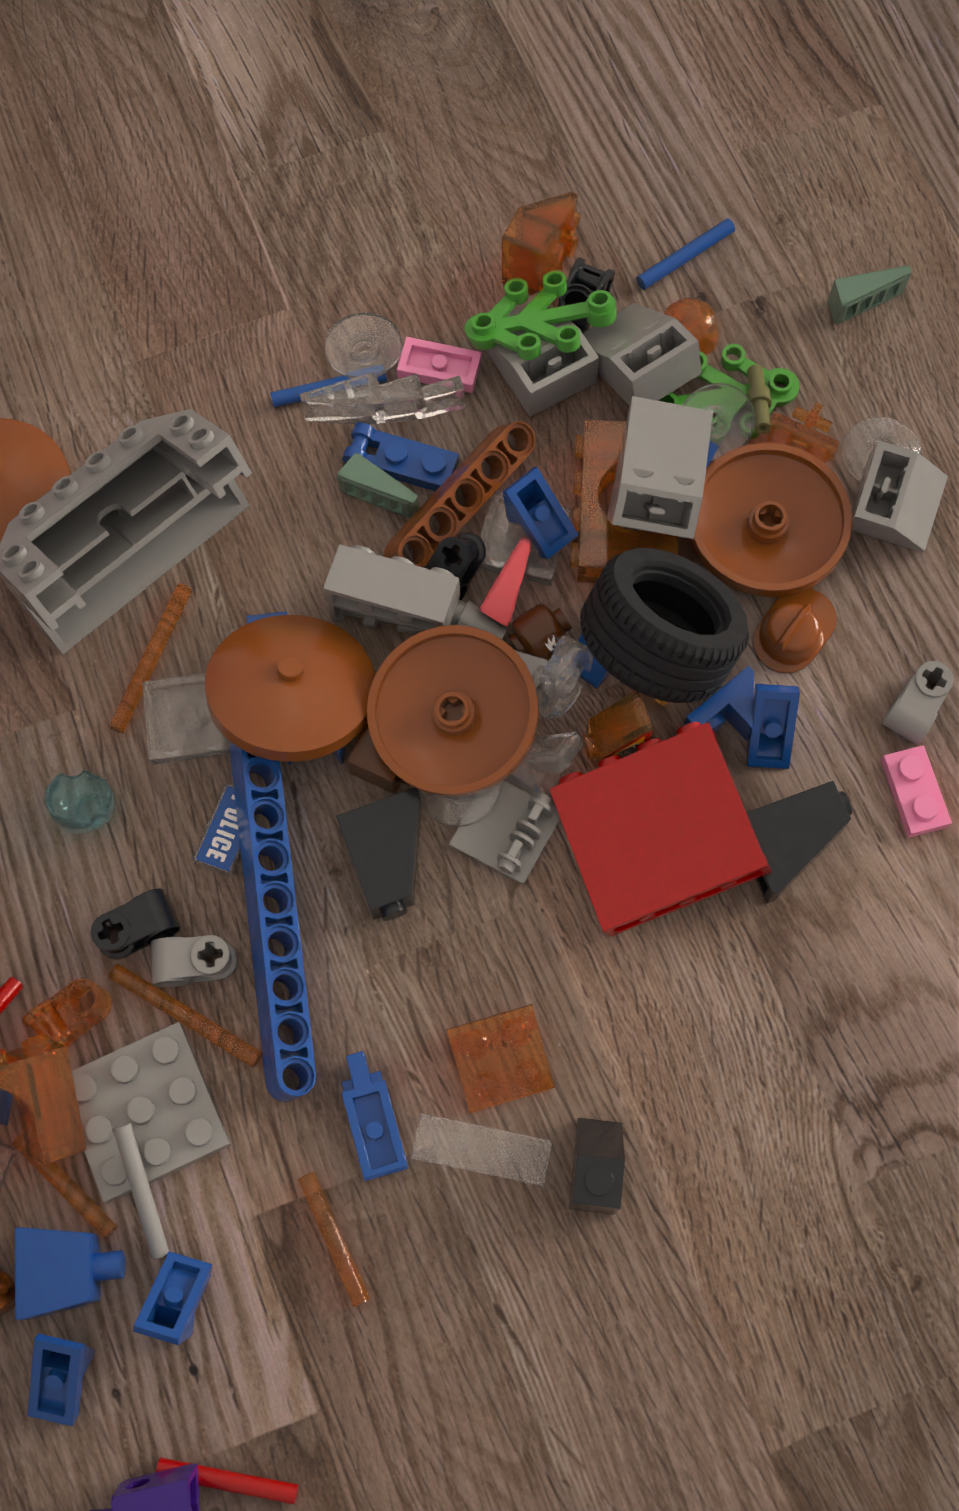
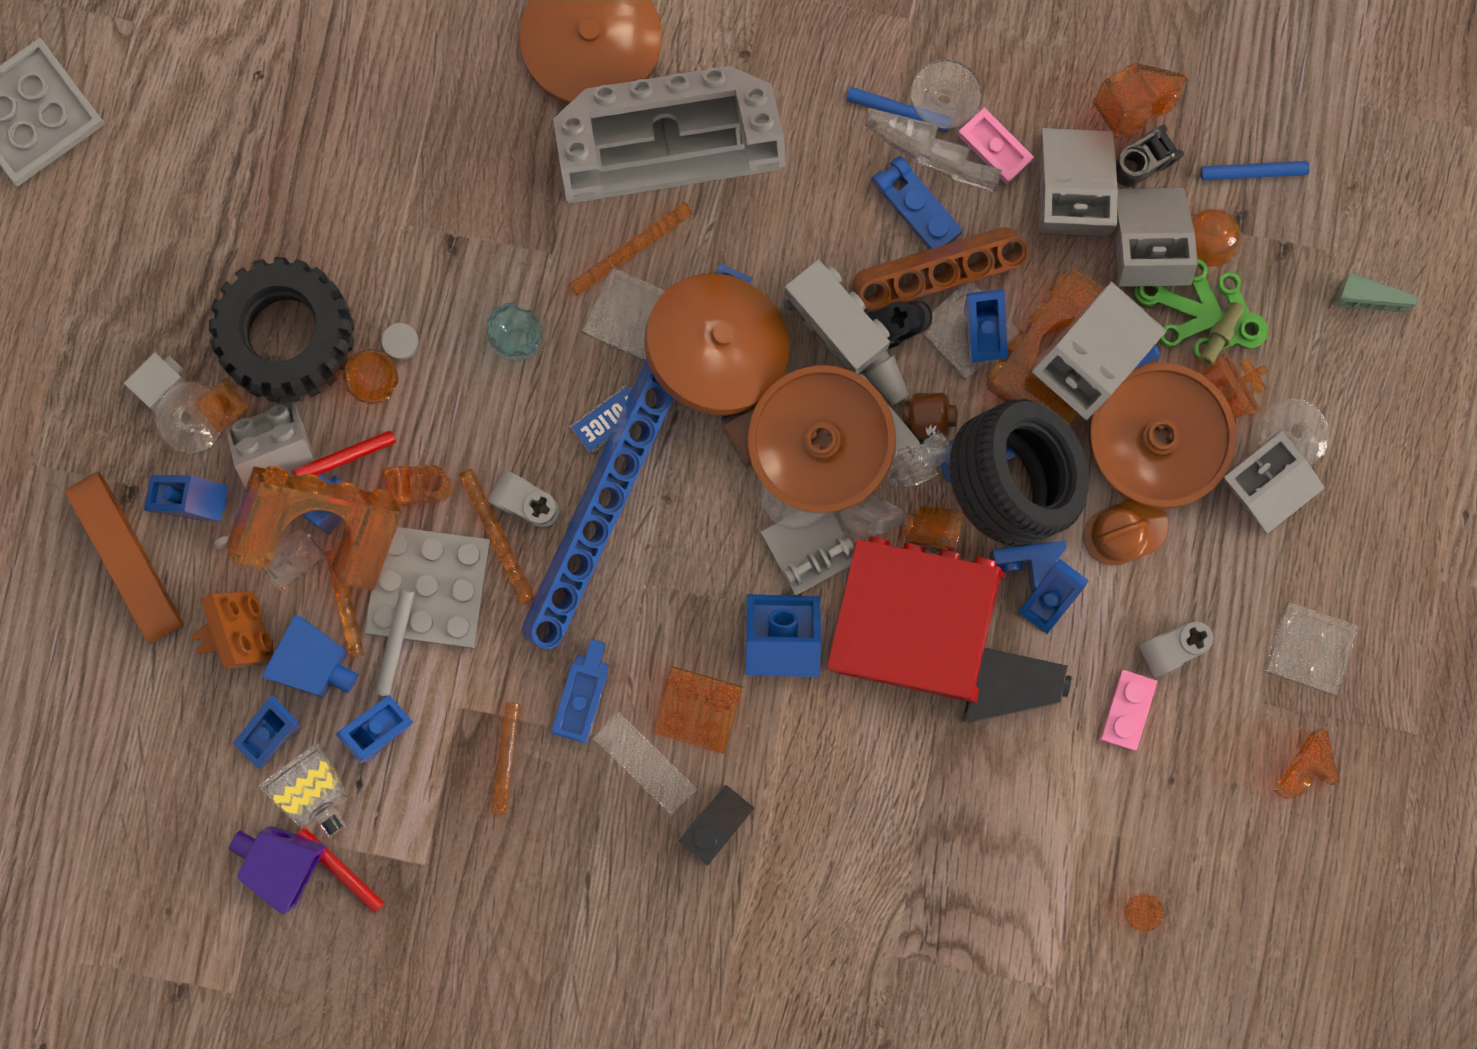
camera: 25 degrees right, 10 degrees up
(138, 923) = (507, 449): black piece -> none
(141, 1414) = (309, 791): none -> clear torso
(371, 484) = (878, 212): sand green slope -> none
(385, 851) = (710, 508): black slope -> none
(495, 328) = (1090, 159): bright green plant -> none
(504, 592) = (921, 367): coral slope -> none
(538, 930) = (783, 635): none -> blue slope
(734, 415) = (1187, 341): clear dish -> none

